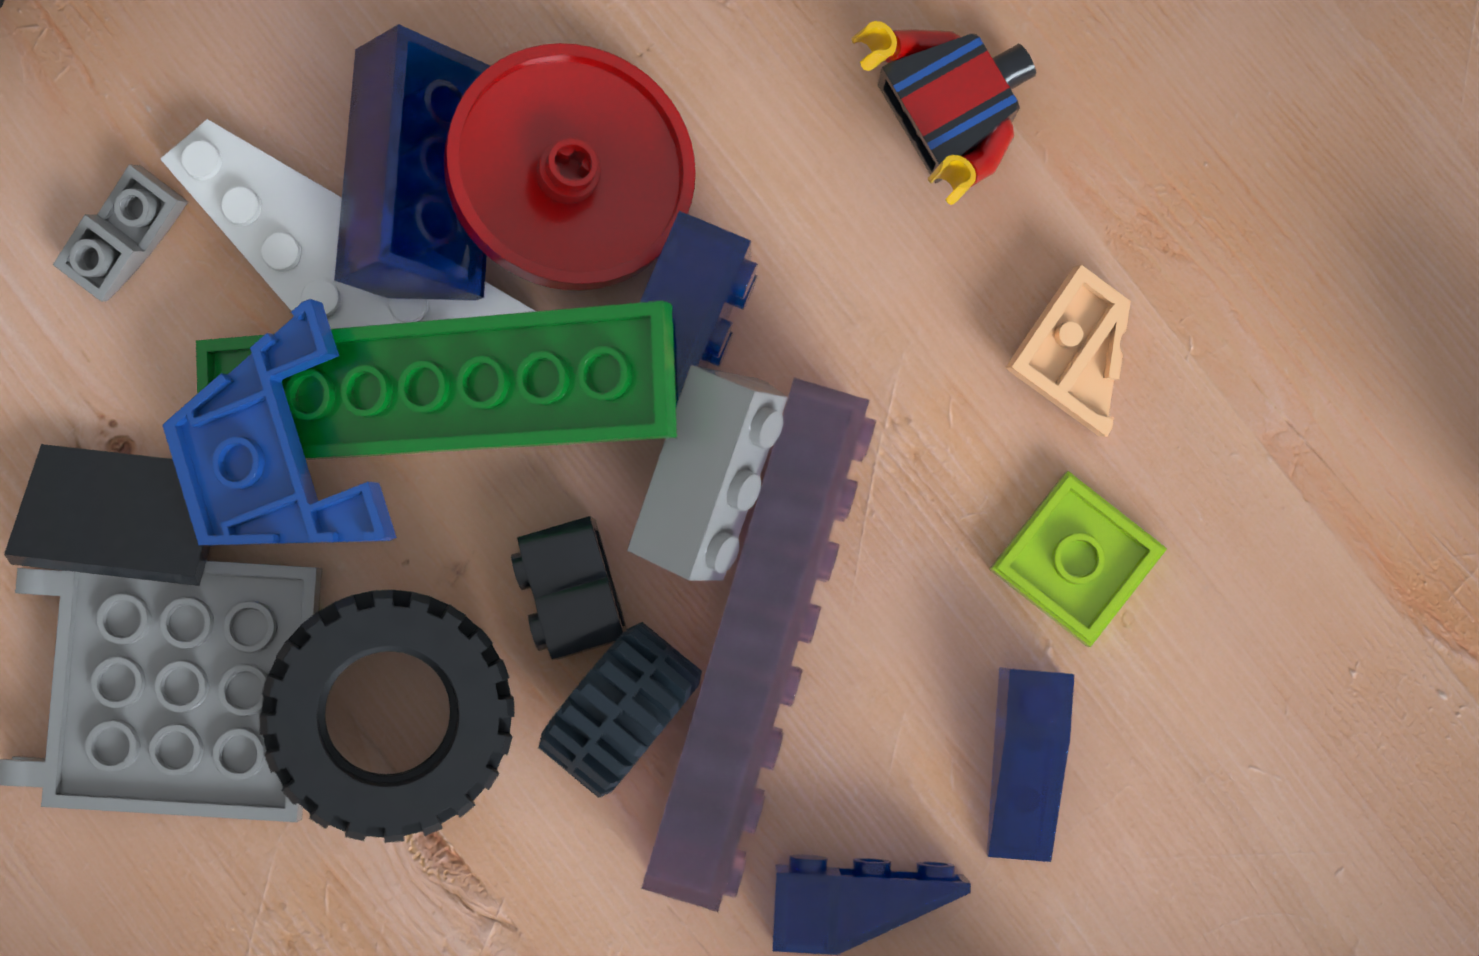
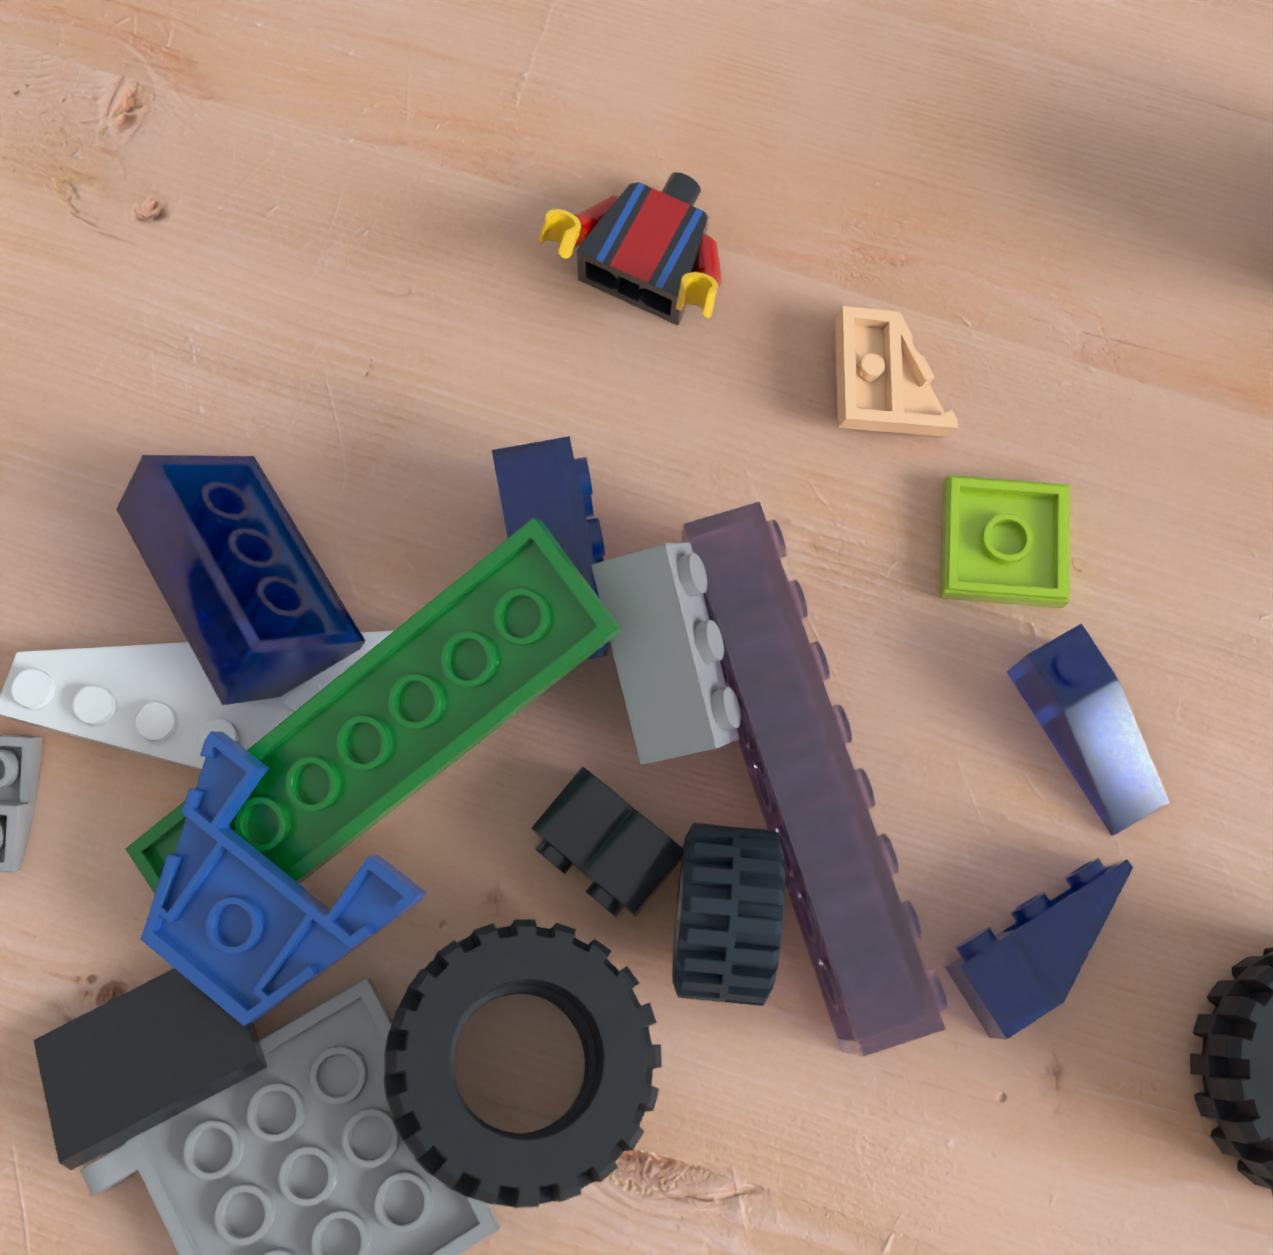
camera: 40 degrees left, 10 degrees down
(568, 166) = (367, 490): red dish -> none

